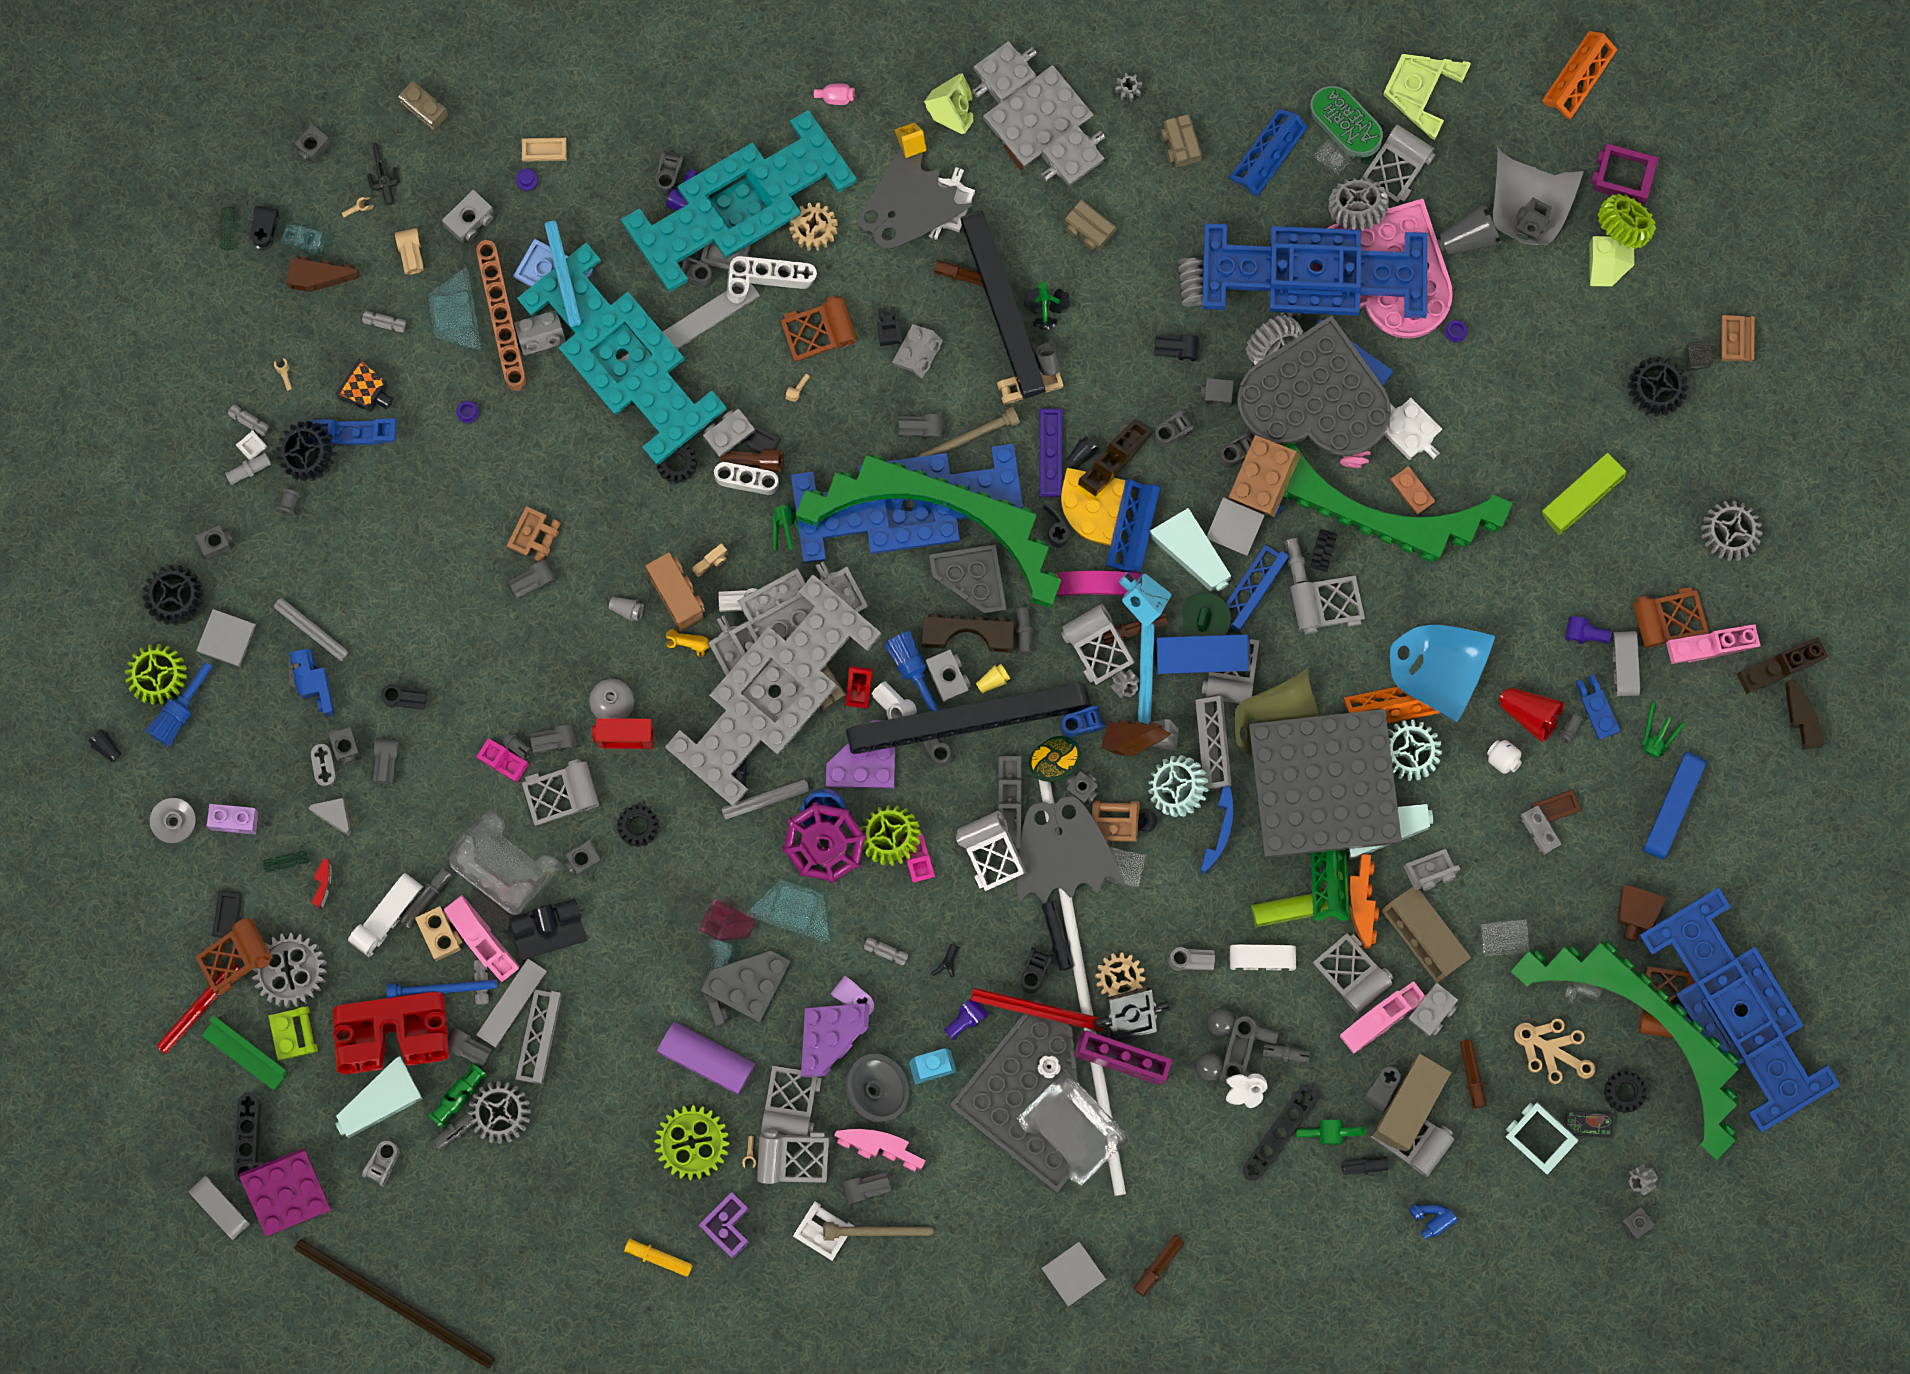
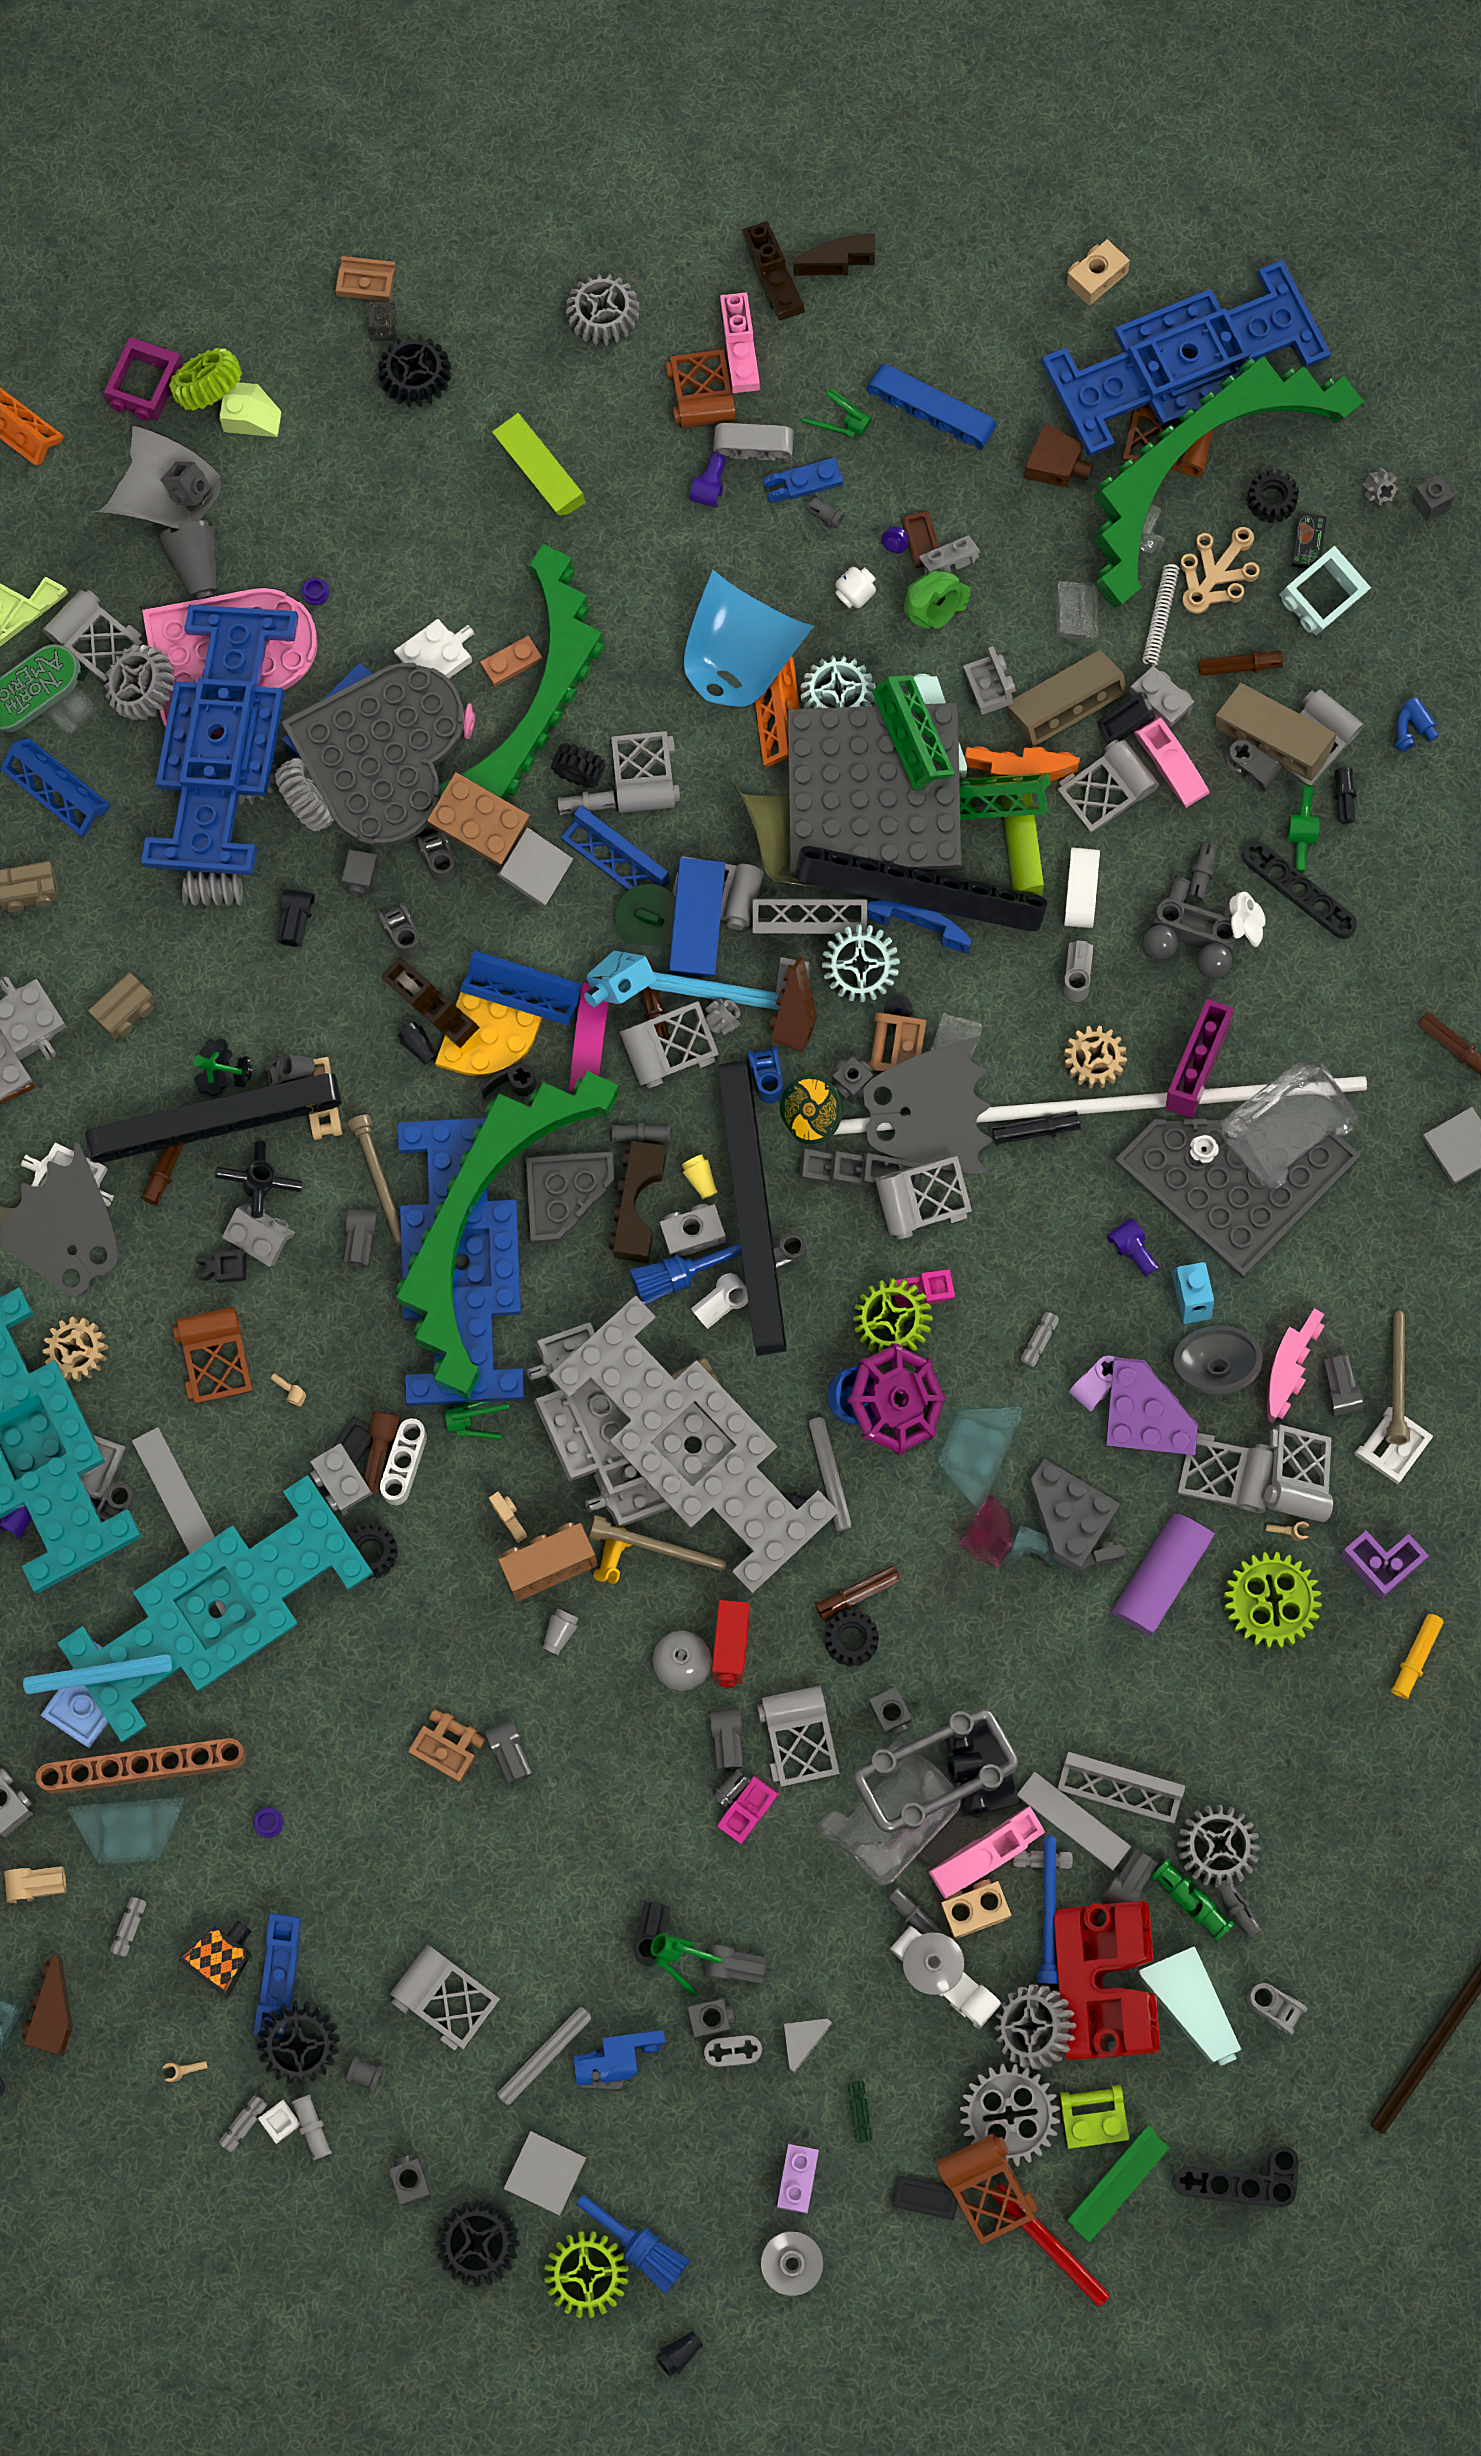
camera: 80 degrees left, 5 degrees down
(218, 1207) = (1324, 2233): light grey beam -> none
(285, 1192) = (1310, 2138): magenta plate -> none
(323, 877) = (886, 2060): red slope -> none
(353, 534) = (424, 1980): none -> light grey piece
(353, 982) = (1031, 2002): none -> light grey gear
(390, 707) = (670, 1949): none -> green plant
(402, 912) = (928, 1979): none -> light grey dish
(533, 932) = (913, 1814): none -> flat silver bar
(539, 332) = (171, 1716): light grey bracket -> none
(674, 828) = (857, 1592): none -> reddish brown axle
(702, 629) = (601, 1529): none -> dark tan piece
(728, 600) = (564, 1492): white piece -> none
(771, 278) = (136, 1406): white beam -> none
(859, 687) = (694, 1341): red slope -> none
(861, 770) = (803, 1362): medium lavender plate -> none
(948, 961) = (1058, 1264): black bar -> none
(967, 345) = (258, 1179): none -> black bar
(1034, 1009) = (1131, 1155): red axle -> none
(1035, 966) = (1076, 1156): black piece -> none
(1050, 453) = (412, 1082): dark purple tile -> none
(1131, 1014) = (1144, 1044): plate -> none
(1192, 550) = (559, 921): light aqua slope -> none
(1243, 827) = (920, 888): none -> black beam
(1369, 802) = (907, 731): none -> green fence
(1410, 982) = (1127, 718): none -> black tile
(1499, 811) = (930, 590): none -> bright green helmet
(1509, 1003) = (1150, 636): none -> white piece
(1532, 711) = (803, 549): red cone -> none
(1550, 785) = (895, 540): none -> dark purple plate
(1801, 931) = (1091, 285): none -> tan brick

